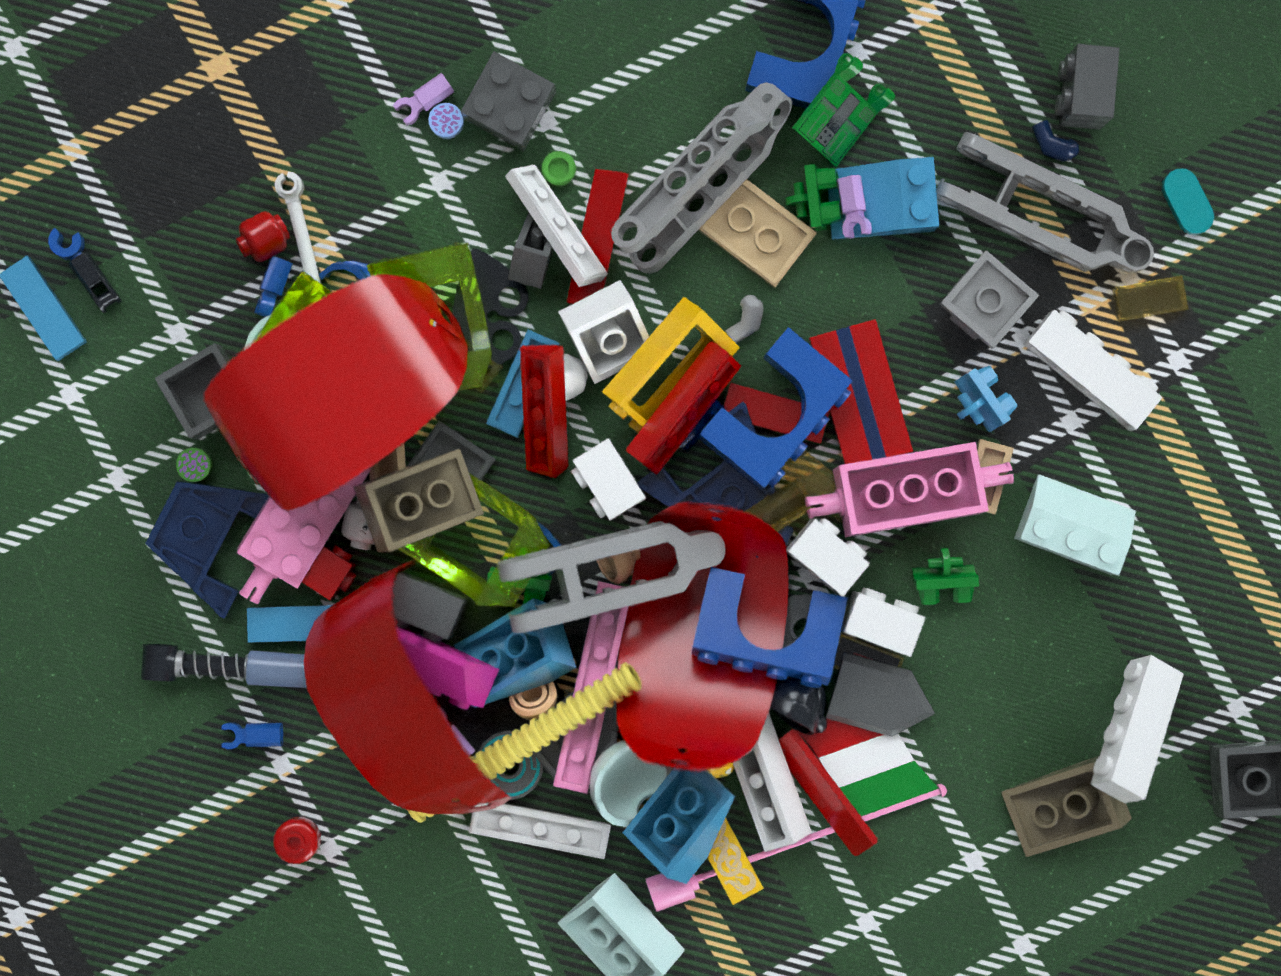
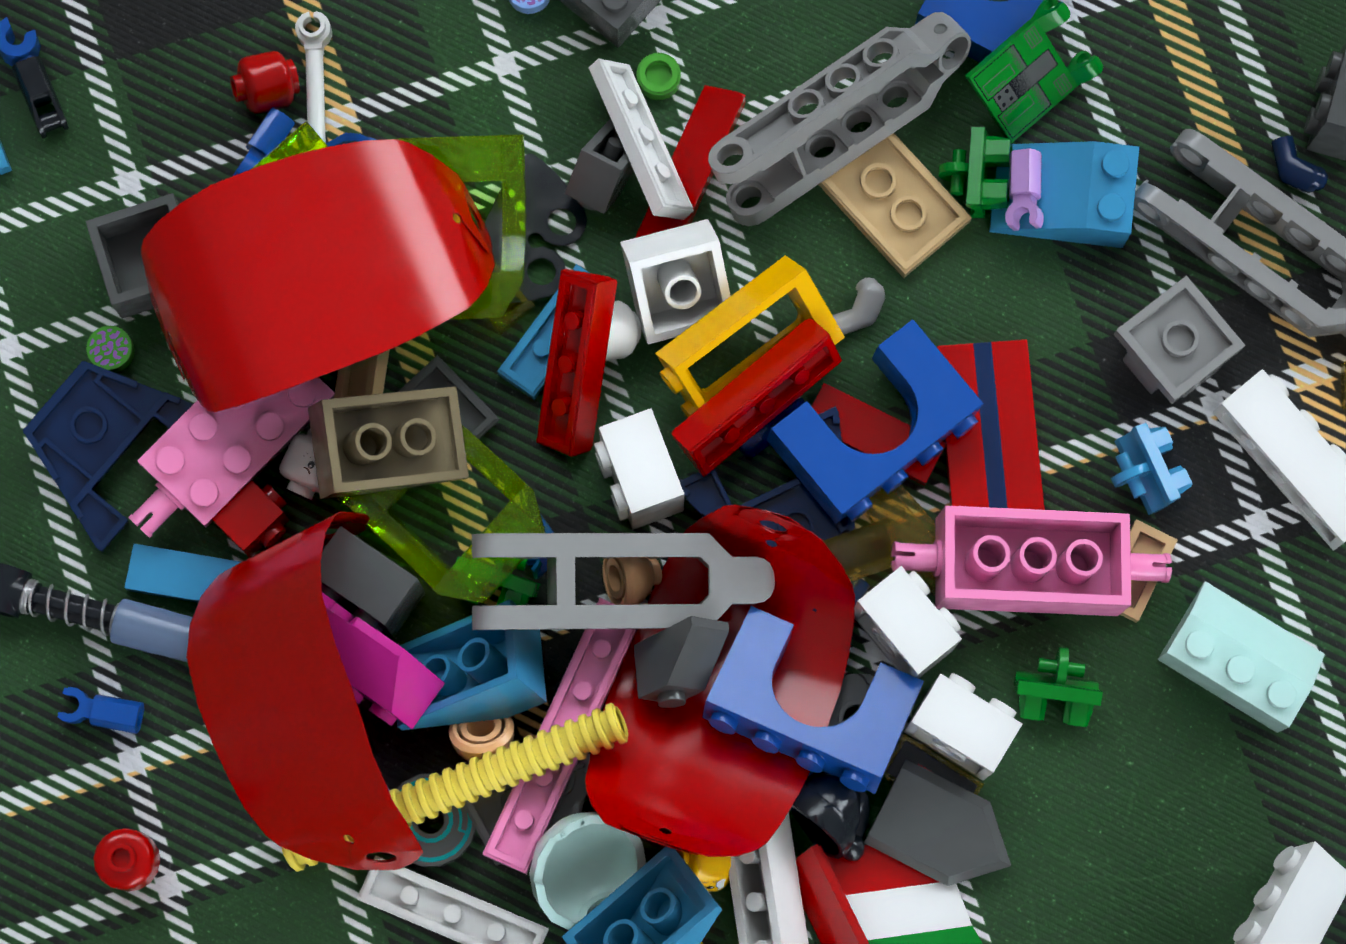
camera: 10 degrees right, 10 degrees down
(666, 620) = (678, 660): none -> dark grey slope

